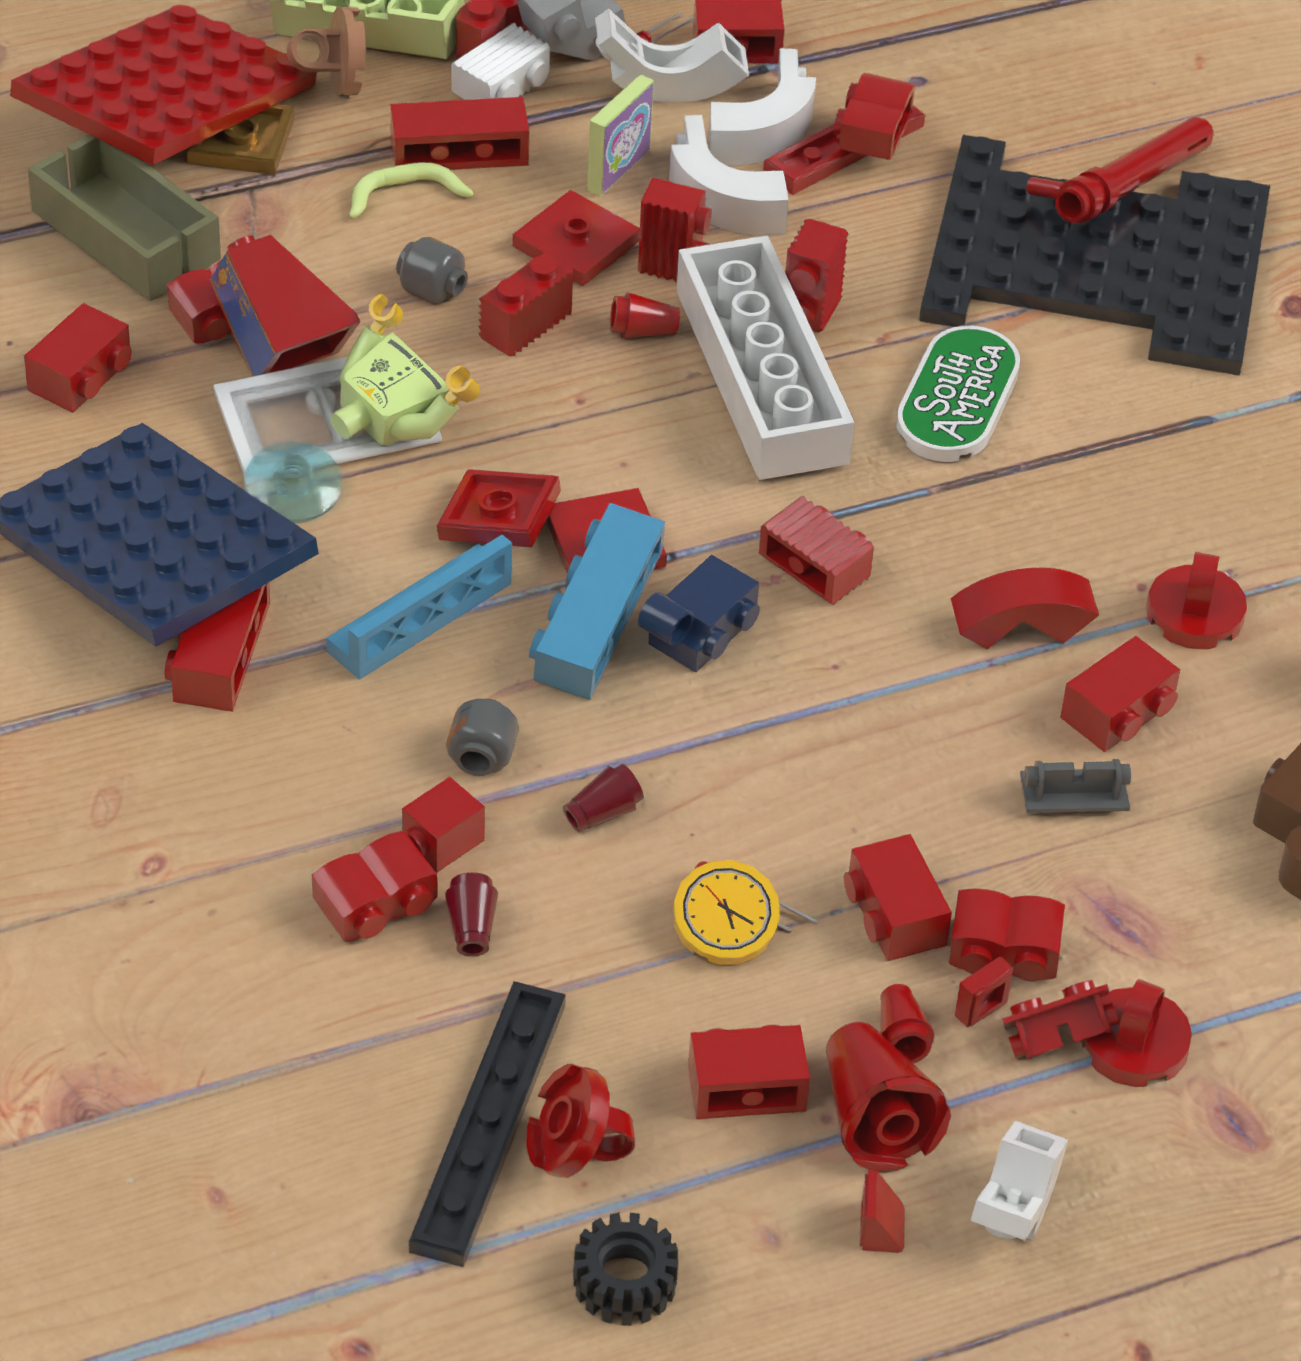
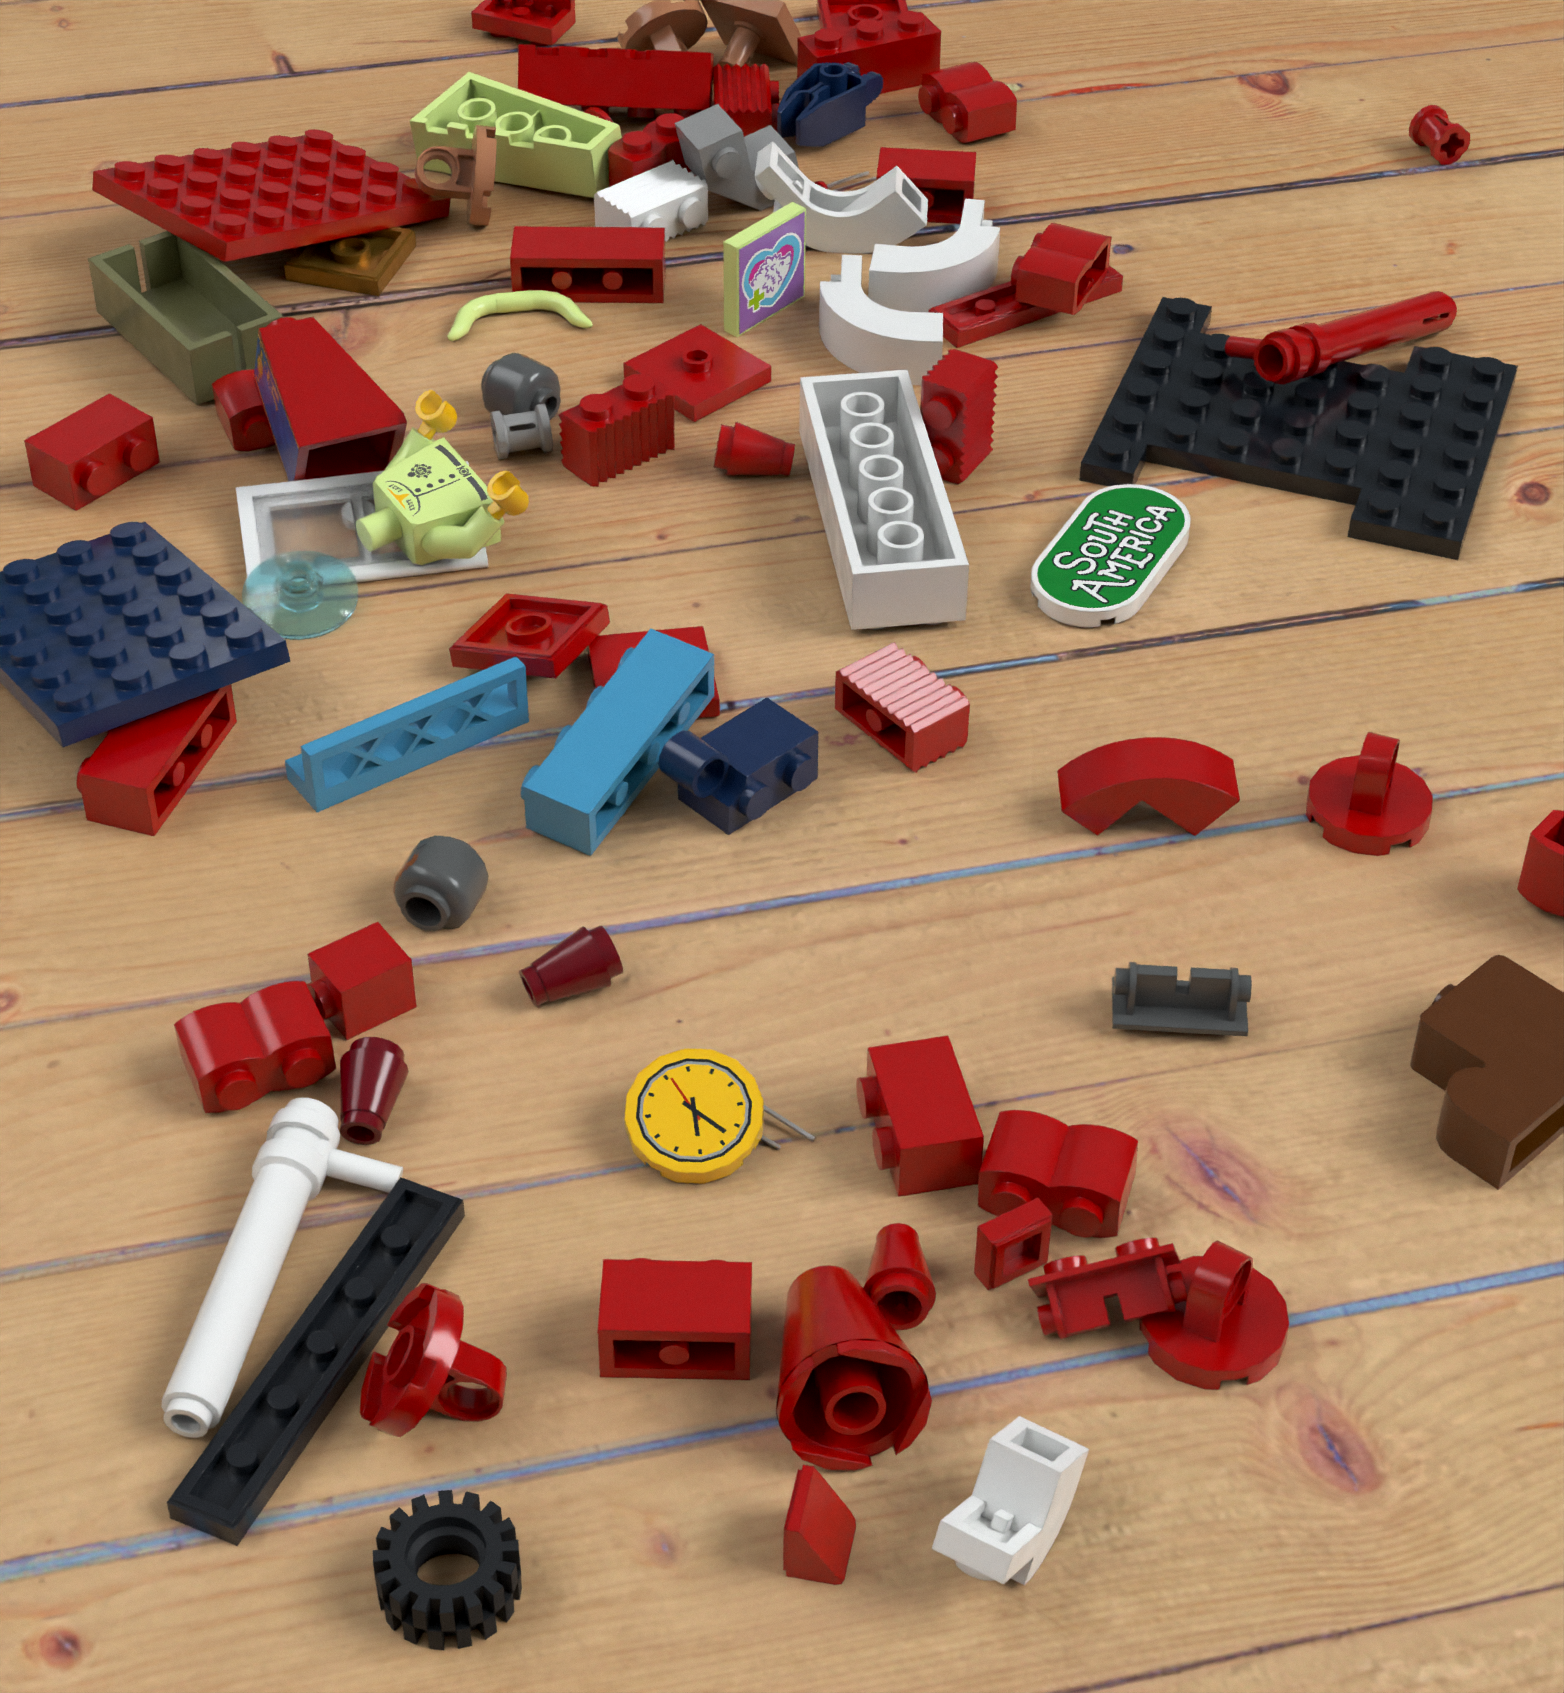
camera: 10 degrees right, 5 degrees down
(428, 989) = (286, 1176): none -> white cylinder
(454, 300) = (521, 431): none -> light grey bush
(670, 220) = (796, 345): red brick -> none
(1120, 694) = (1254, 894): red brick -> none

